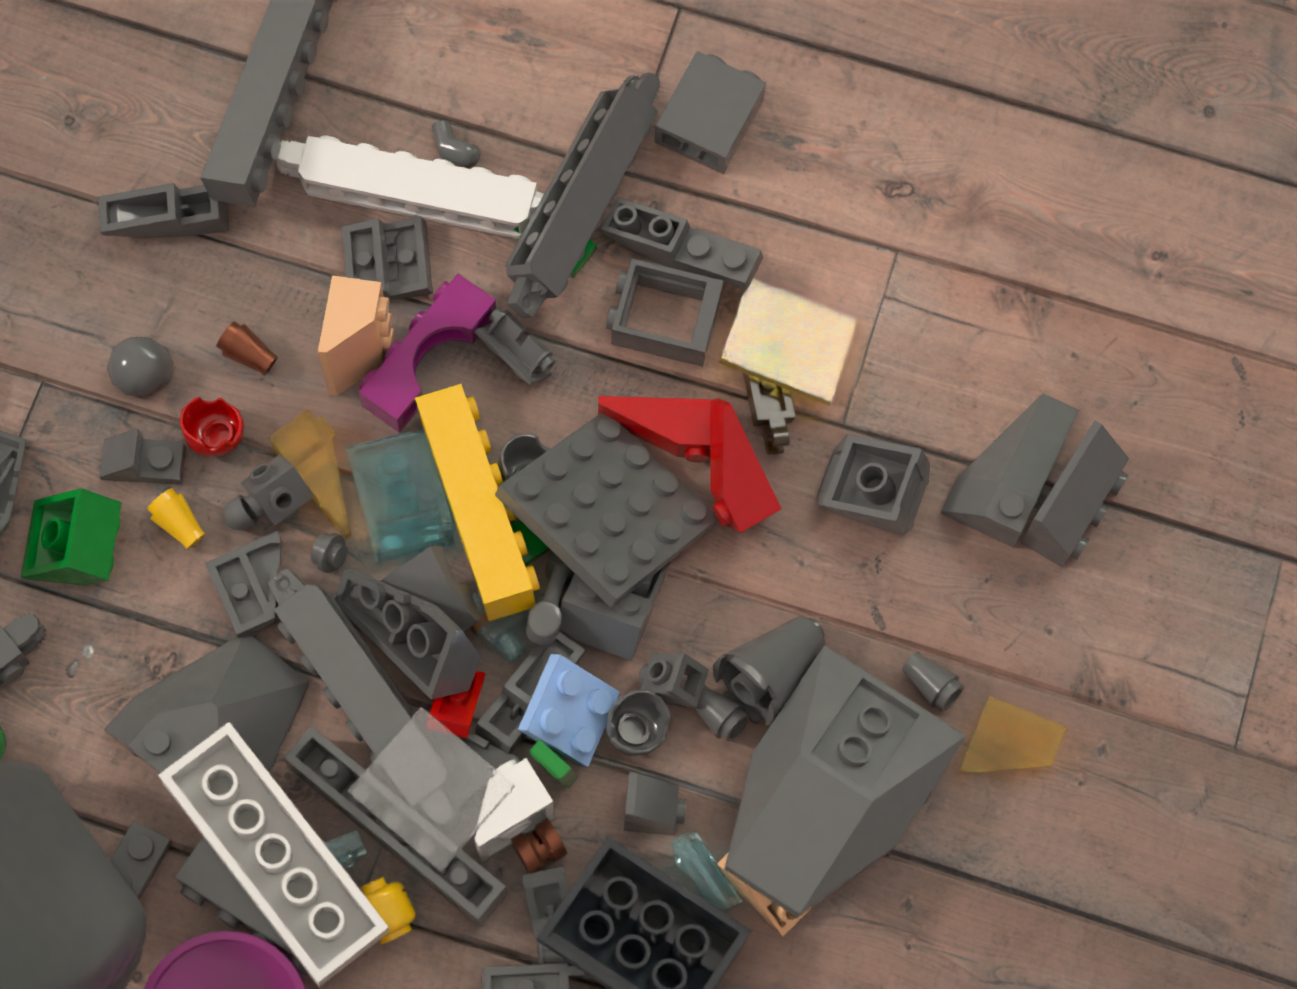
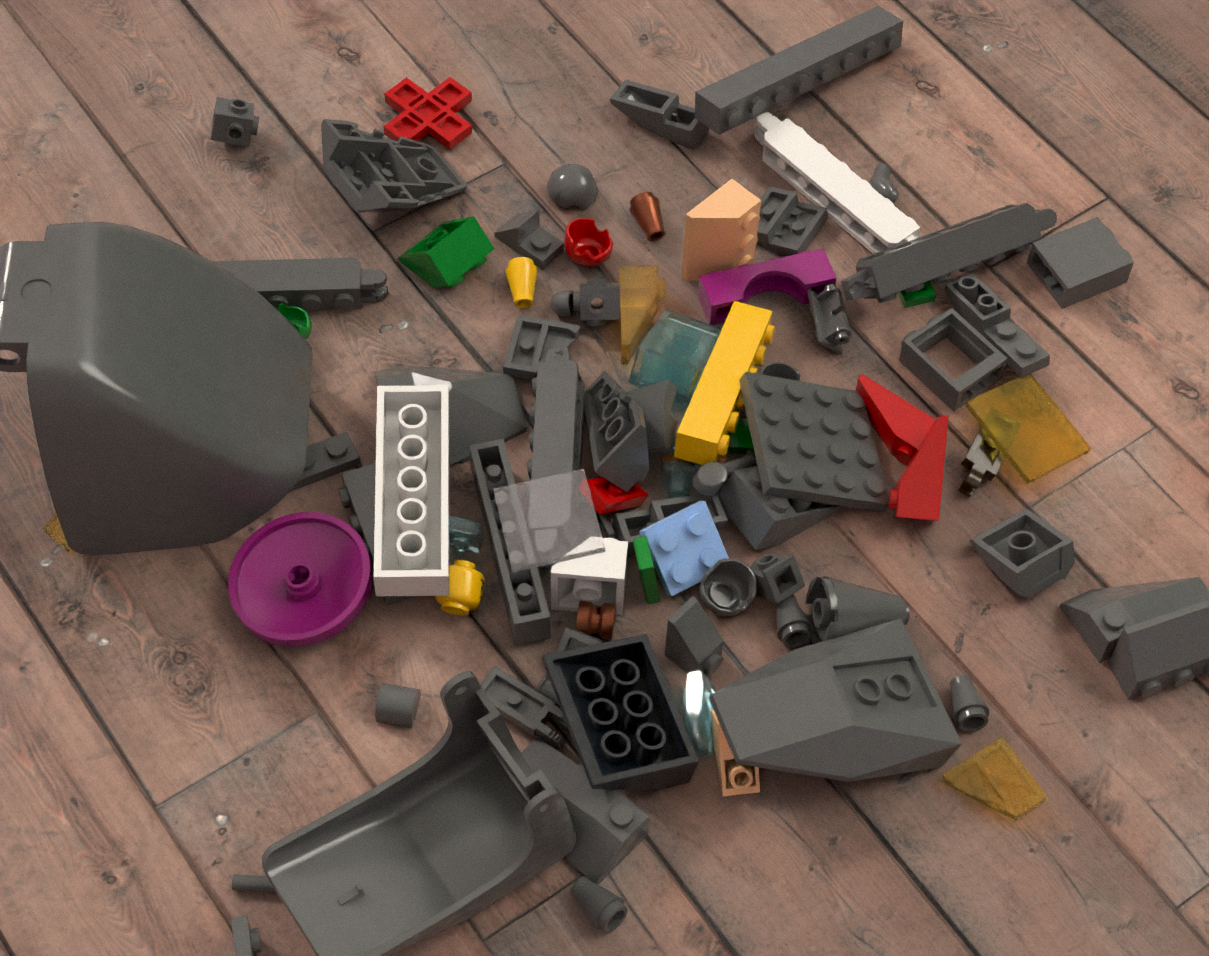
camera: 40 degrees right, 15 degrees down
(329, 552) = (603, 358): dark grey plate -> none

